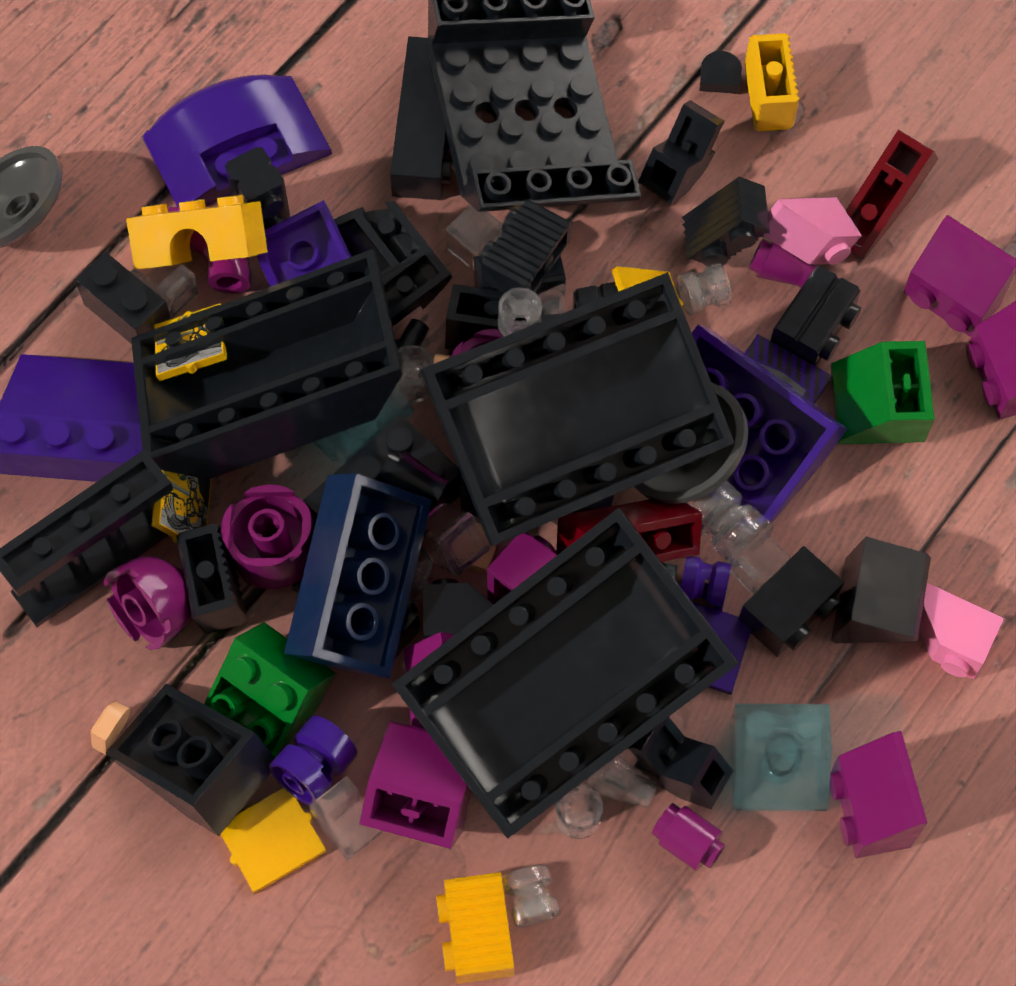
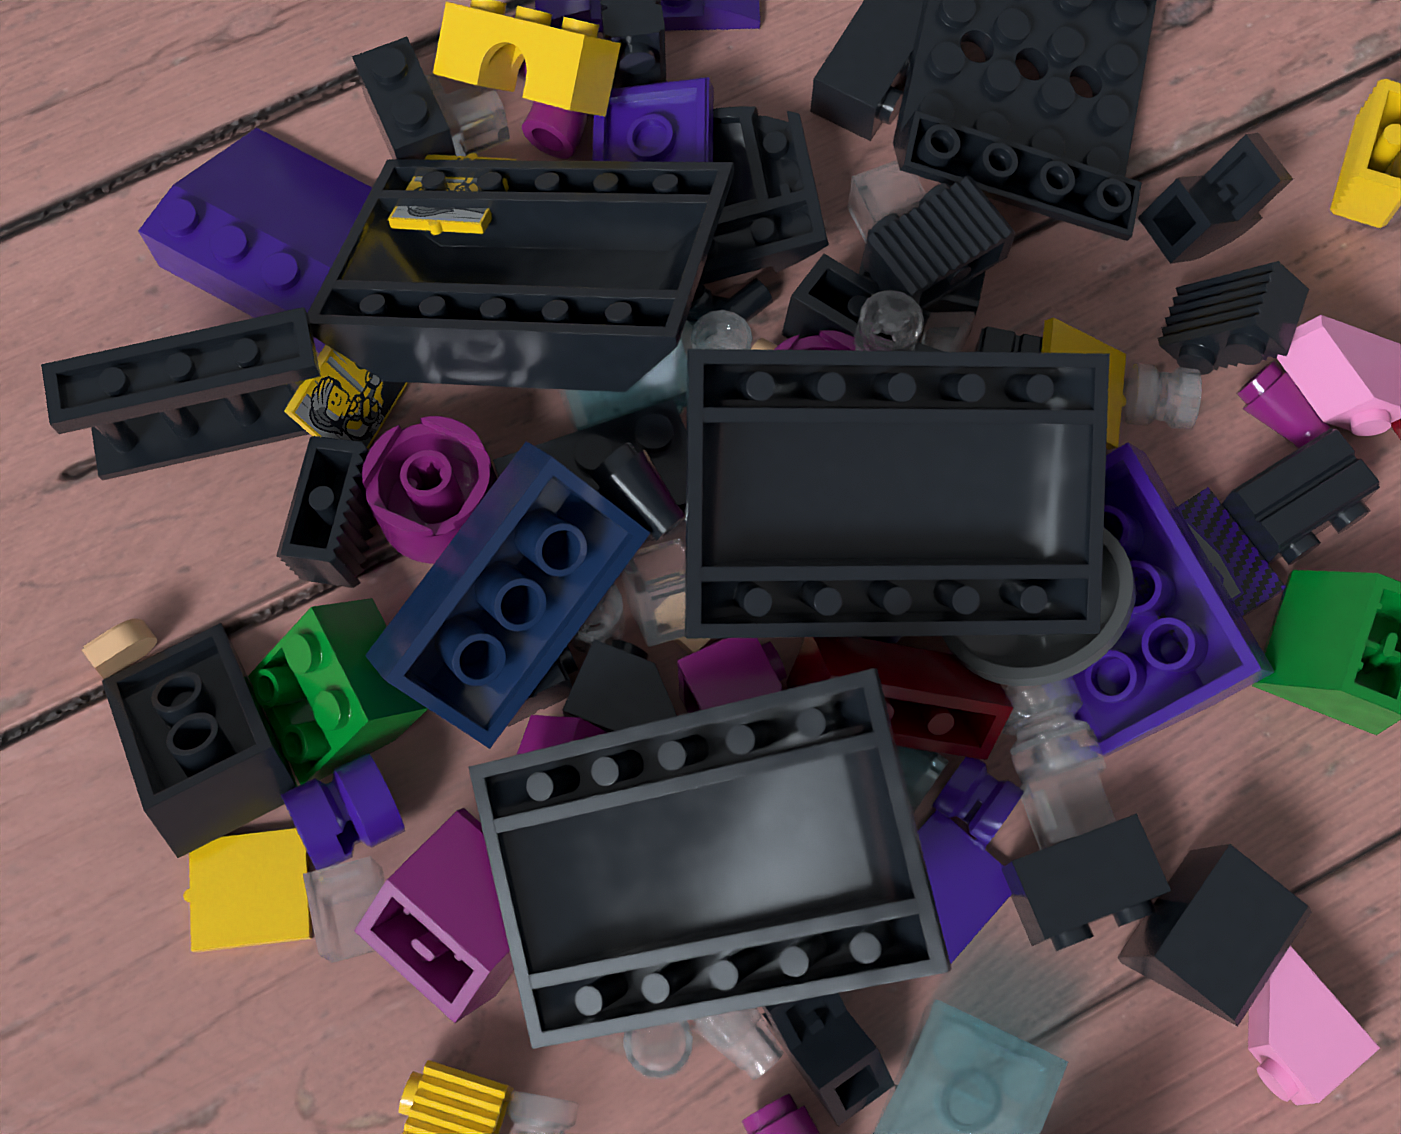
camera: 25 degrees right, 5 degrees up
(149, 600) = (245, 504): magenta cylinder -> none
(721, 73) = (1318, 117): black tile -> none

